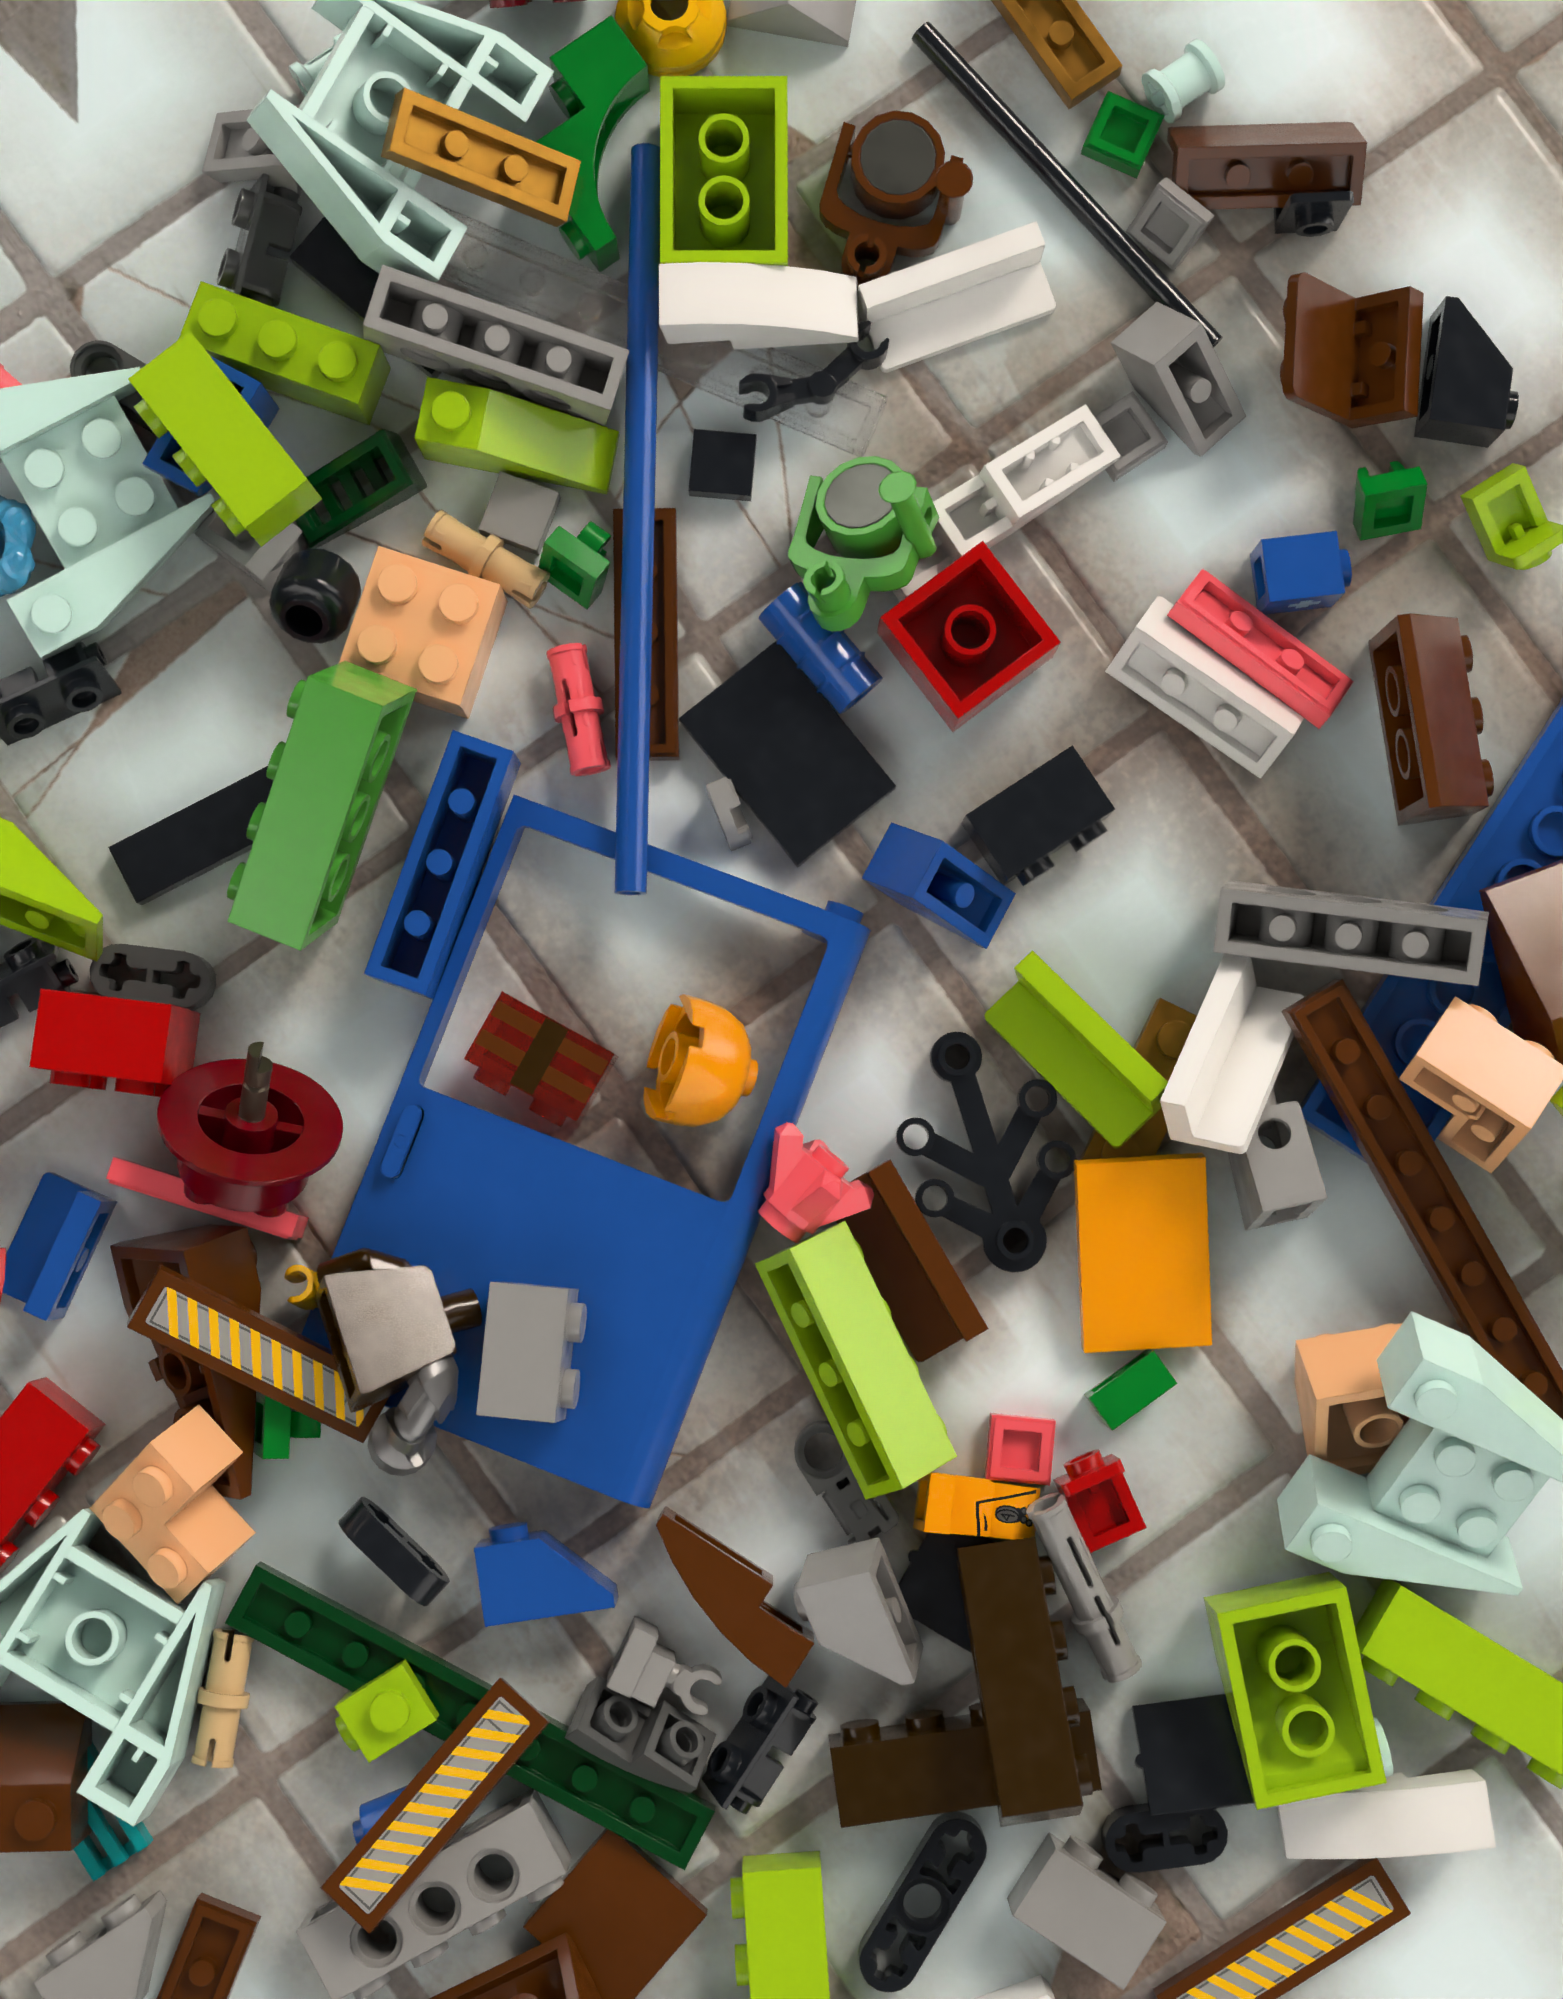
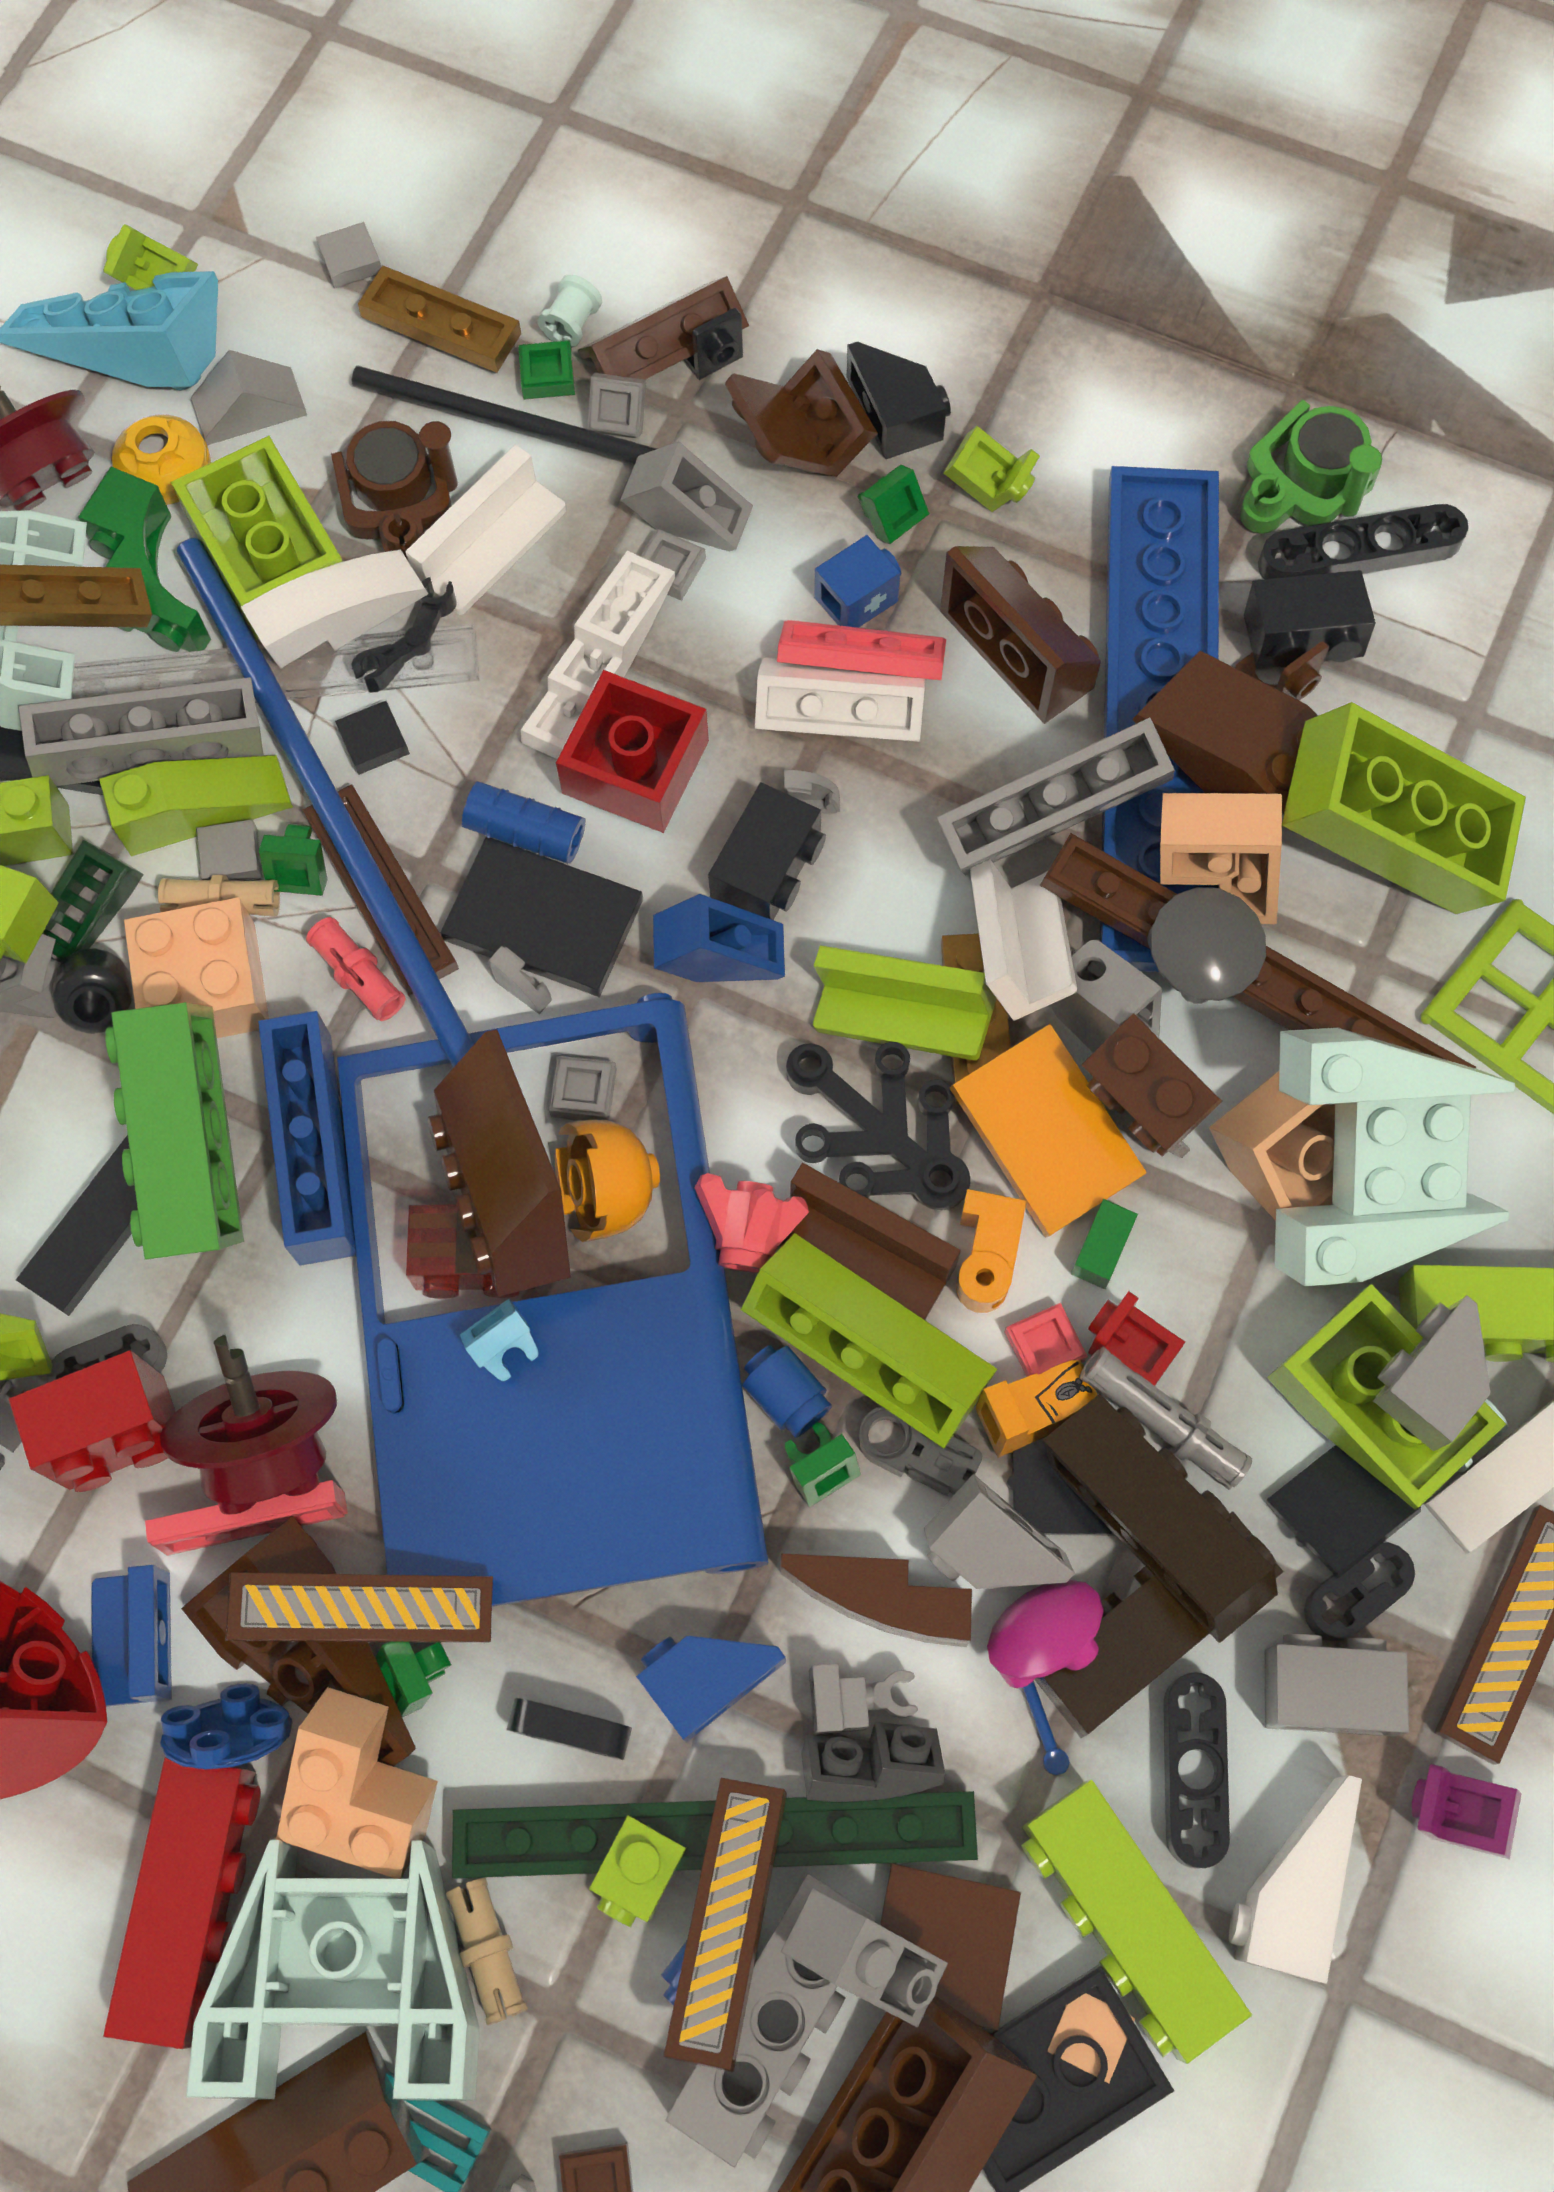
camera: 25 degrees left, 15 degrees down
(93, 1385) = (225, 1730): none -> blue dish
(387, 1336) = (463, 1529): torso -> none
(514, 1167) = (495, 1334): none -> medium azure tile
(530, 1352) = (591, 1476): light grey brick -> none
(533, 1907) = (864, 1958): none -> light grey slope
(599, 1017) = (501, 1171): none -> reddish brown slope
(730, 954) = (582, 1089): none -> light grey tile
(739, 1768) = (971, 1741): black hinge -> none
(747, 1451) = (824, 1469): none -> green tile
(755, 1359) = (786, 1390): none -> blue brick
(805, 1818) = (1055, 1760): none -> blue hinge
(857, 1719) = (1046, 1632): none -> dark pink dish
(877, 527) = (515, 710): bright green piece -> none
(1006, 1355) = (990, 1267): none -> light orange leg
(1119, 775) = (813, 790): none -> light grey tile
(1256, 1285) = (1151, 1083): none -> reddish brown bracket
(1350, 1716) = (1443, 1377): none -> light grey slope
(1404, 1170) = (1207, 944): none -> dark grey dish

